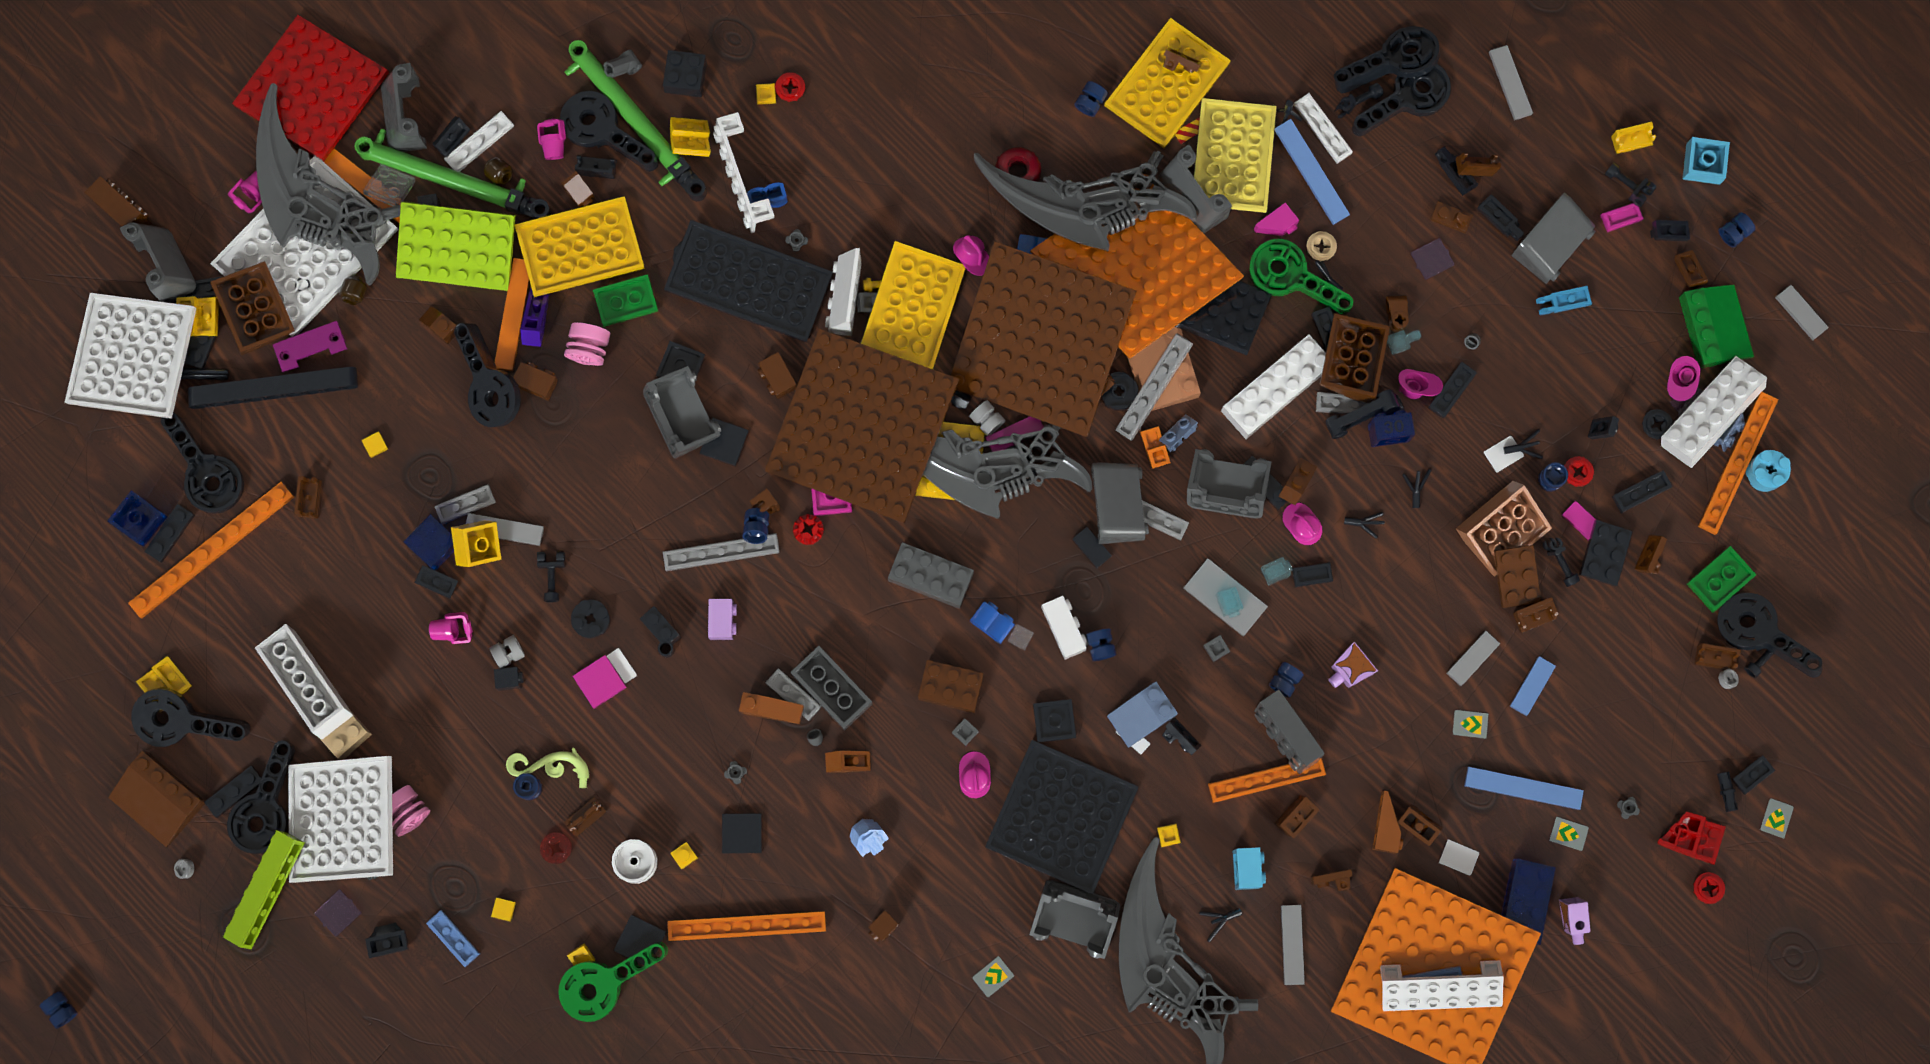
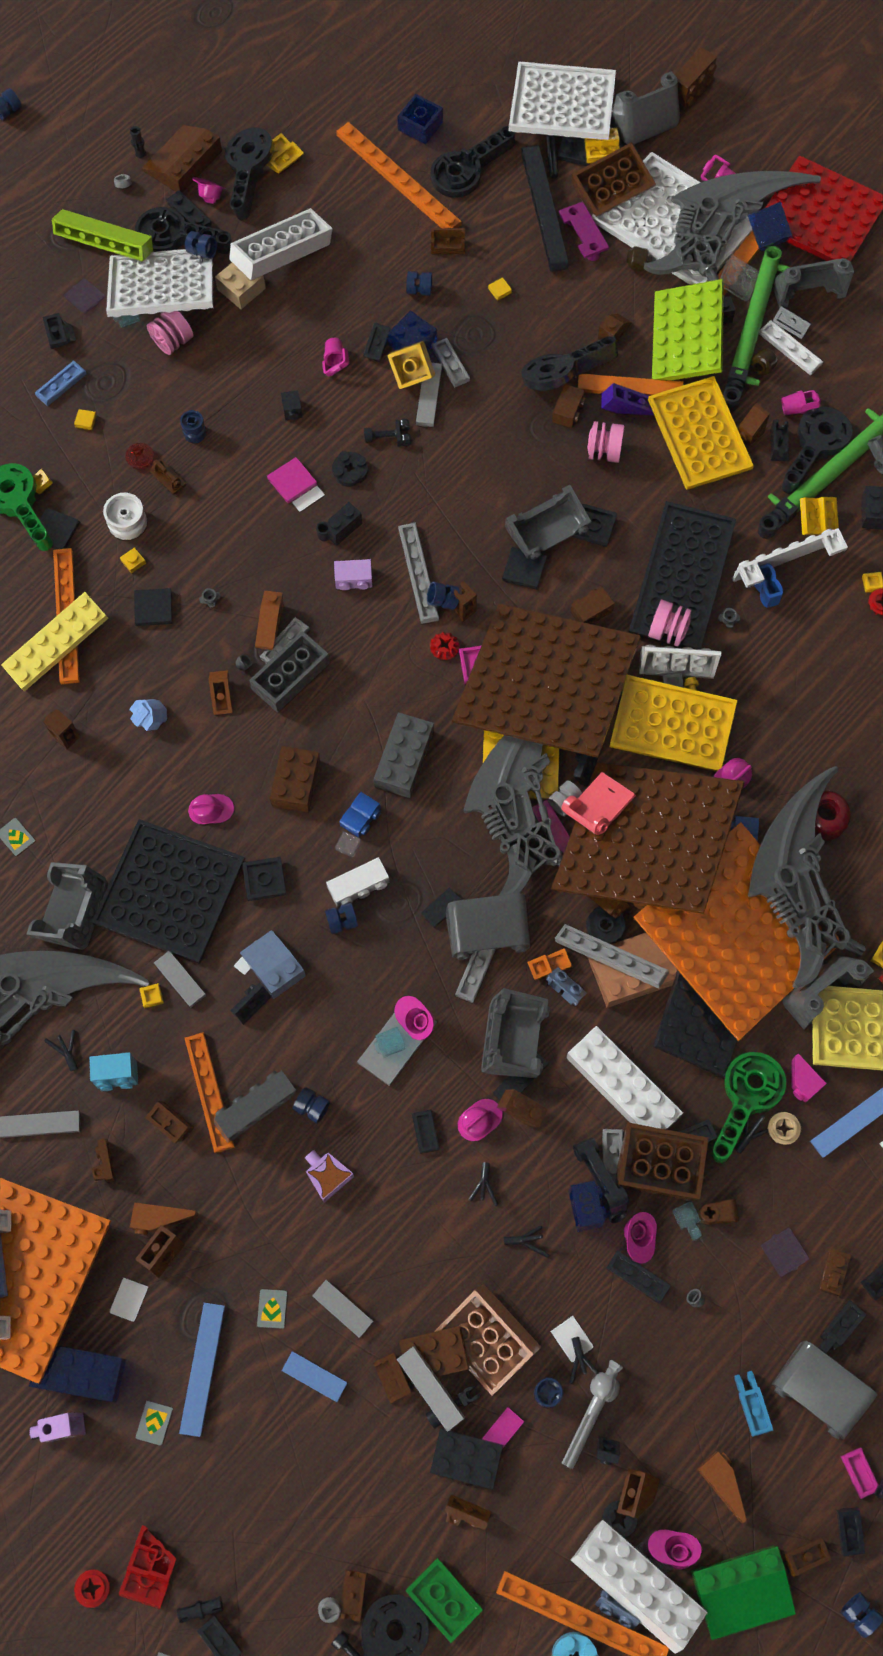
camera: 90 degrees right, 10 degrees down
(136, 845) = (137, 142): none -> black pin
(169, 533) = (410, 147): black plate -> none
(207, 766) = (208, 190): none -> dark pink piece
(296, 766) = (201, 244): none -> dark blue wheel
(335, 143) = (770, 226): none -> clear blue brick
(359, 525) = (425, 283): none -> dark blue wheel
(500, 654) = (315, 402): light grey wheel -> none
(548, 760) = (217, 444): yellowish green plant -> none
(625, 300) = (653, 475): green plate -> none
(780, 936) = (54, 641): none -> light yellow plate
(810, 297) = (670, 623): none -> bright pink wheel
(965, 732) = (251, 796): dark grey plate -> none
(1003, 386) = (598, 804): none -> coral door
(1153, 807) = (179, 979): none -> light grey tile
(1209, 576) = (414, 1017): none -> dark pink piece
(1216, 648) = (342, 1034): dark grey plate -> none
(1276, 571) = (426, 1092): clear light blue brick -> none
(1548, 579) = (431, 1388): none -> light grey tile
(1550, 427) = (604, 1388): none -> light grey piece
(1587, 471) = (547, 1426): red gear -> none
(1626, 333) = (721, 1478): none -> dark orange slope
(1634, 810) = (175, 1488): dark grey plate -> none
(1639, 406) = (637, 1493): none -> reddish brown slope
(1642, 491) = (540, 1501): black plate -> none

